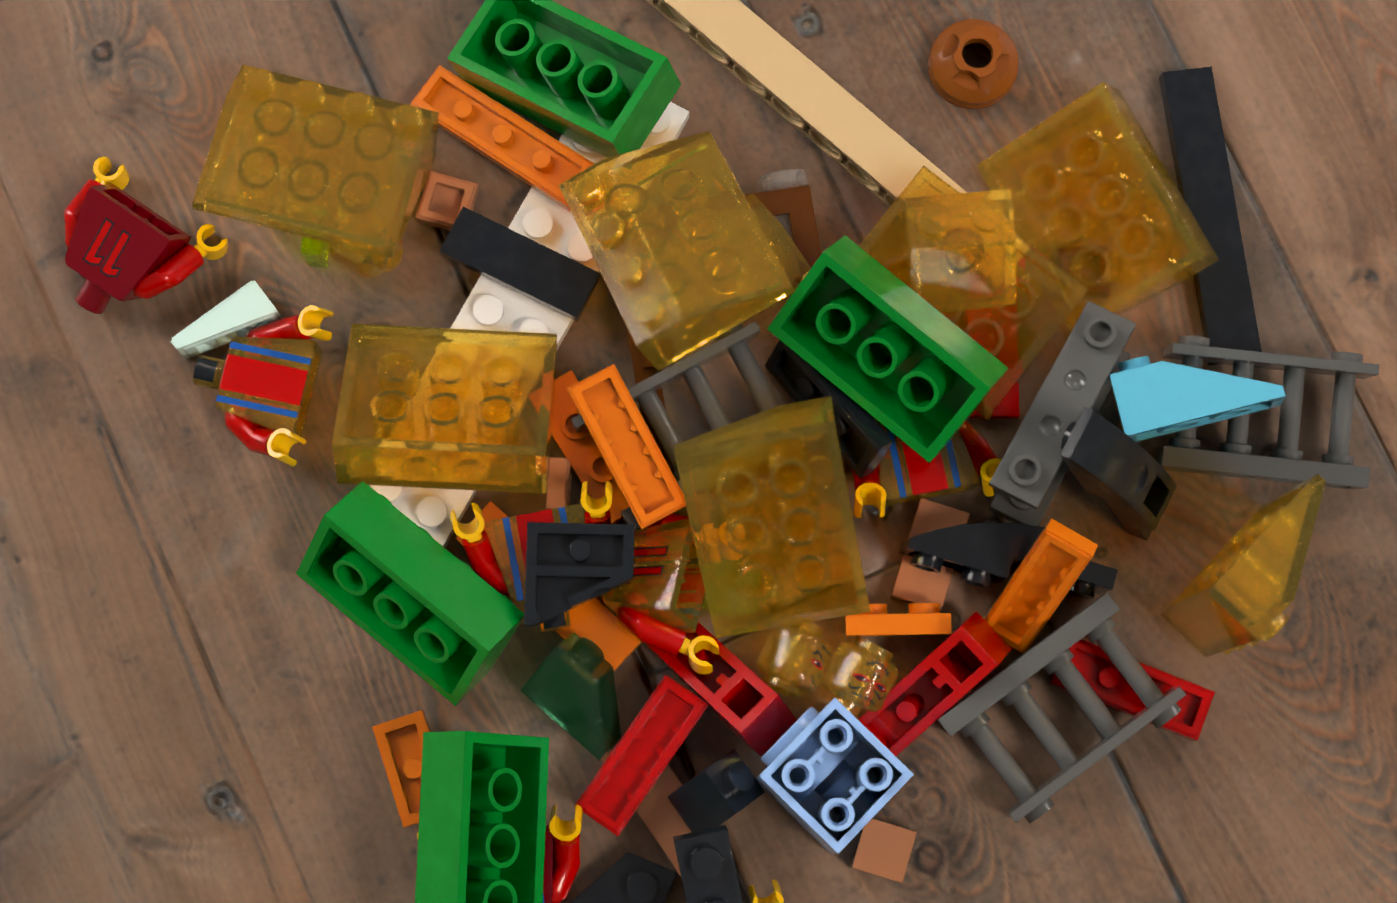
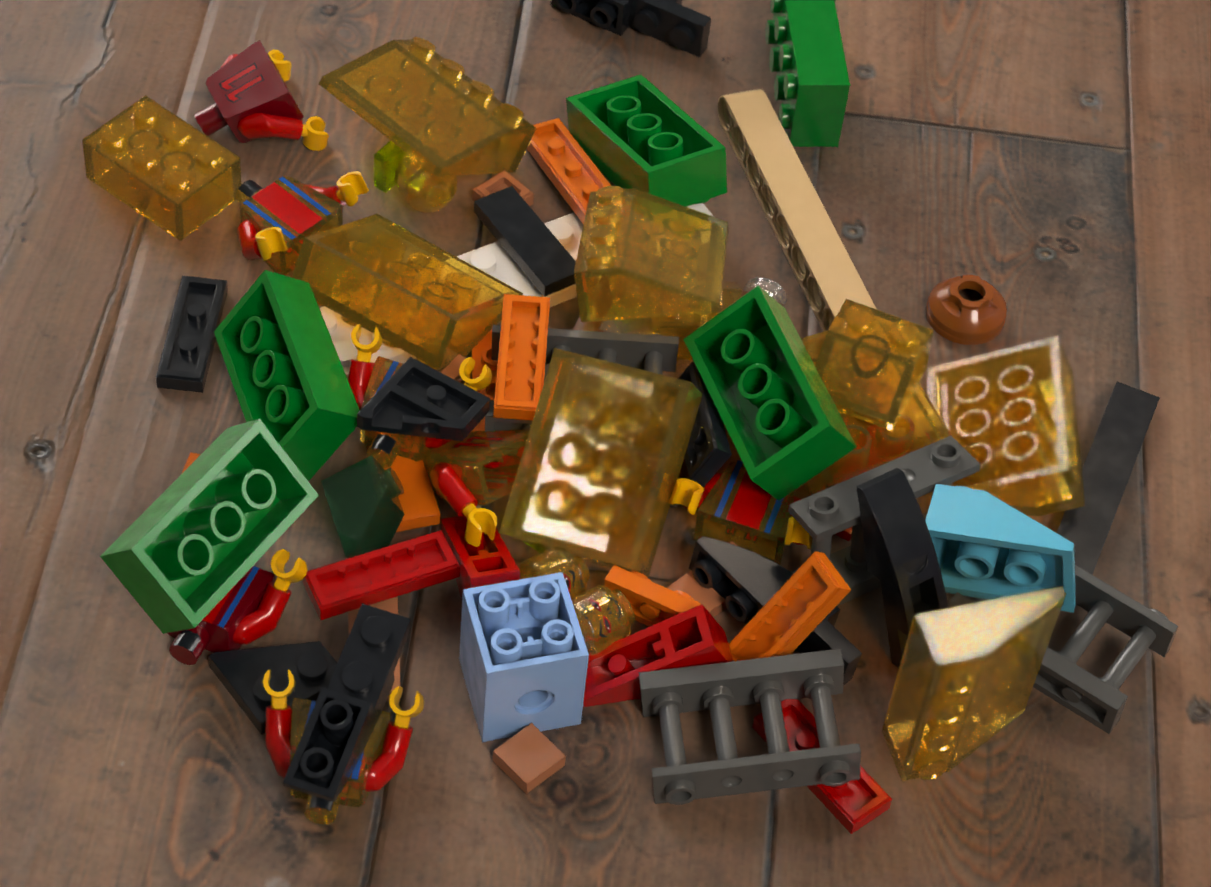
camera: 30 degrees right, 30 degrees down
(96, 394) = (162, 167): none -> clear yellow brick
(229, 319) = (304, 167): light aqua slope -> none
(266, 572) = (191, 334): none -> black tile
(716, 793) = (433, 629): black brick -> none

